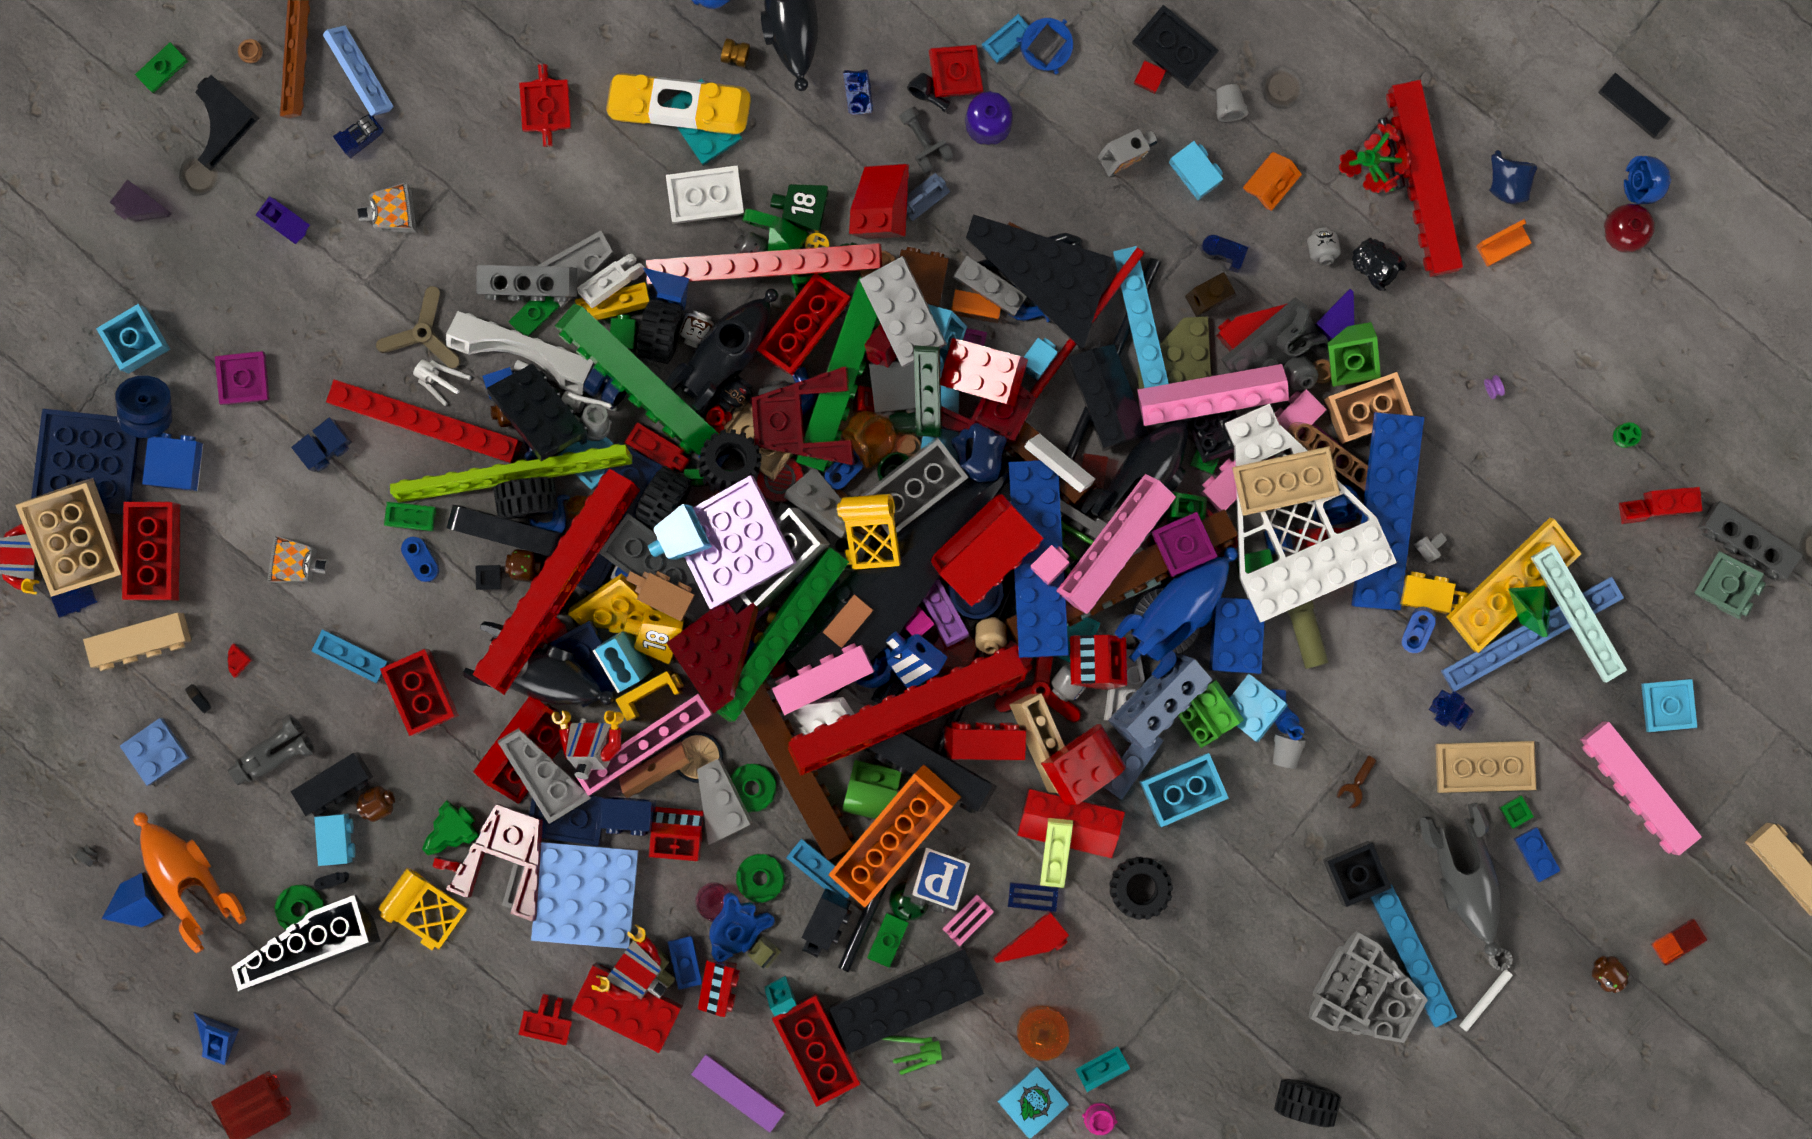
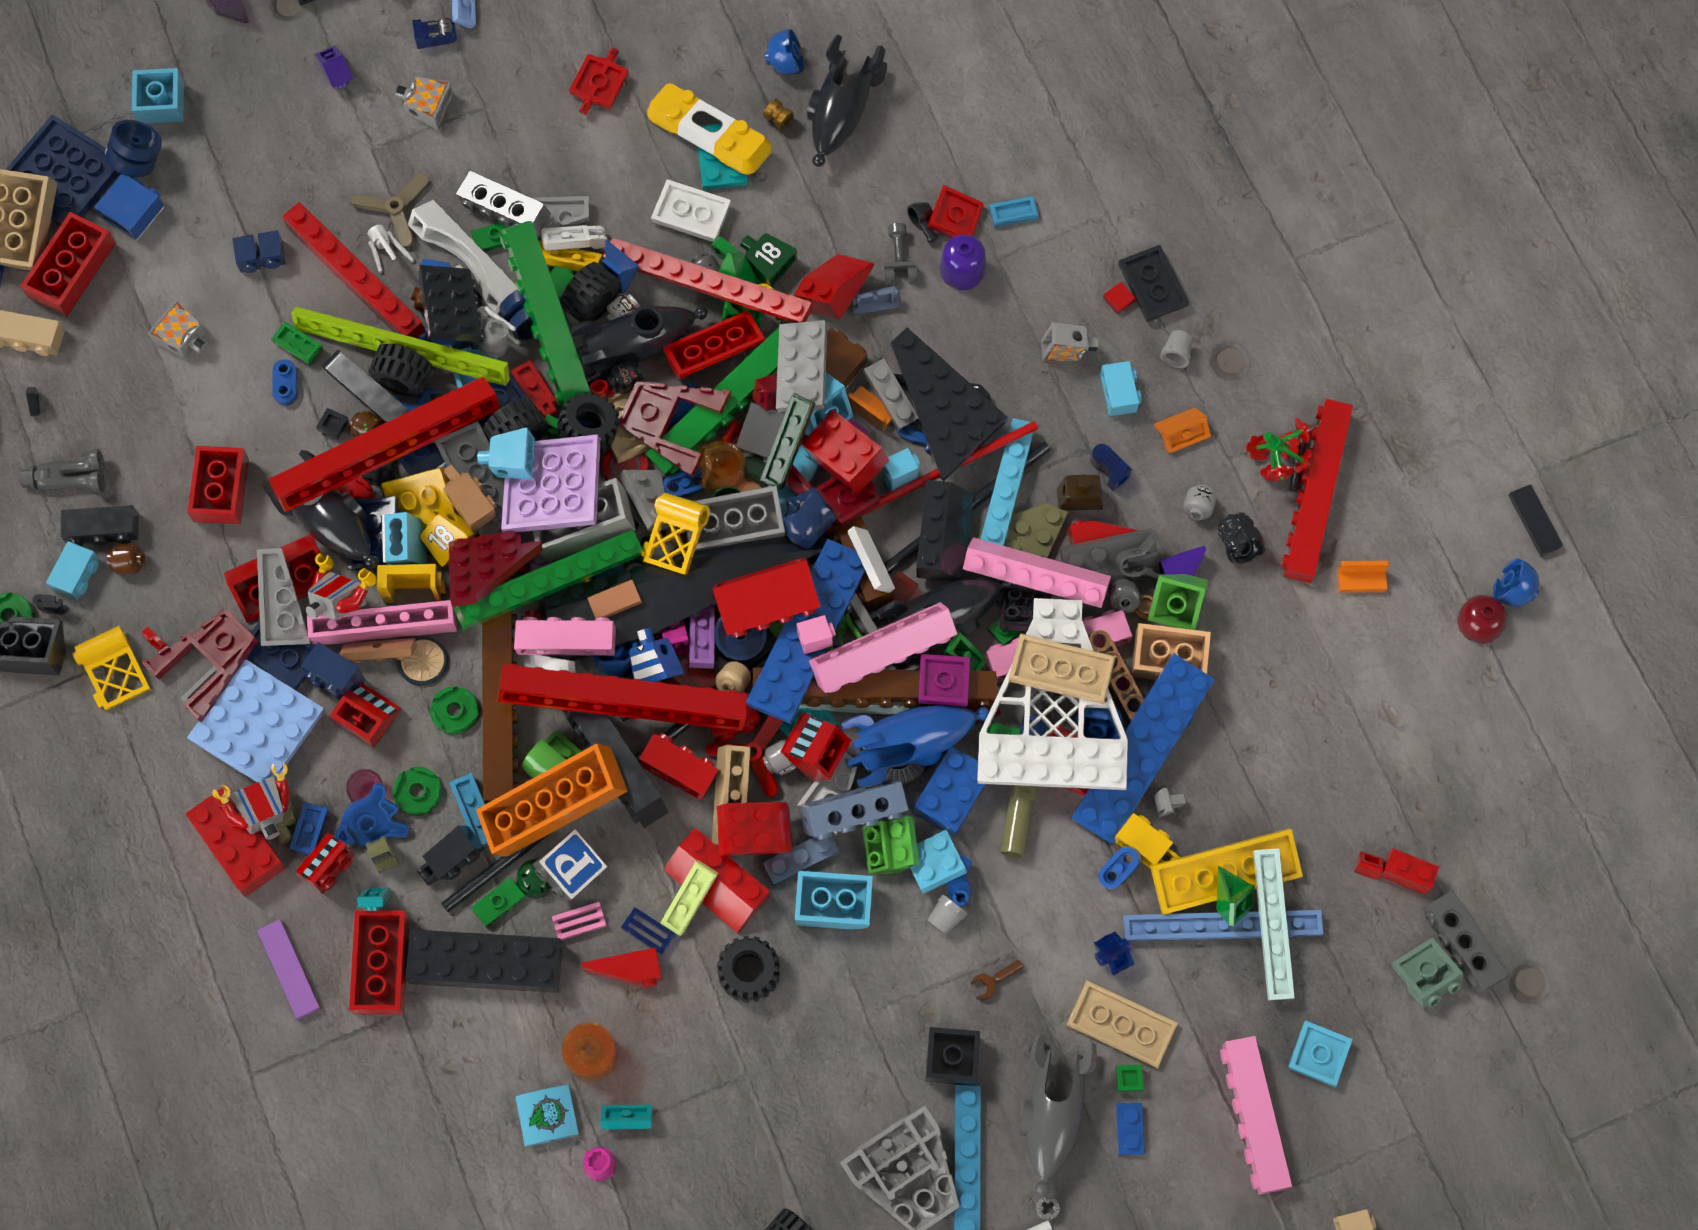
camera: 25 degrees right, 15 degrees down
(237, 660) = (84, 388): red tile -> none
(242, 378) = (226, 169): magenta plate -> none
(349, 656) = (177, 428): dark azure plate -> none
(450, 829) = (176, 613): green rock -> none
(545, 1026) = (156, 822): red hinge -> none
(721, 802) = (420, 707): light grey wing -> none
(858, 92) = (863, 190): clear blue hips -> none
(929, 1052) = (479, 1020): bright green plant -> none
(1061, 55) = (1052, 245): blue piece -> none
(1494, 387) = (1294, 693): medium lavender bush -> none
(1511, 179) = (1394, 524): dark blue piece -> none
(1631, 433) = (1398, 789): green wheel -> none

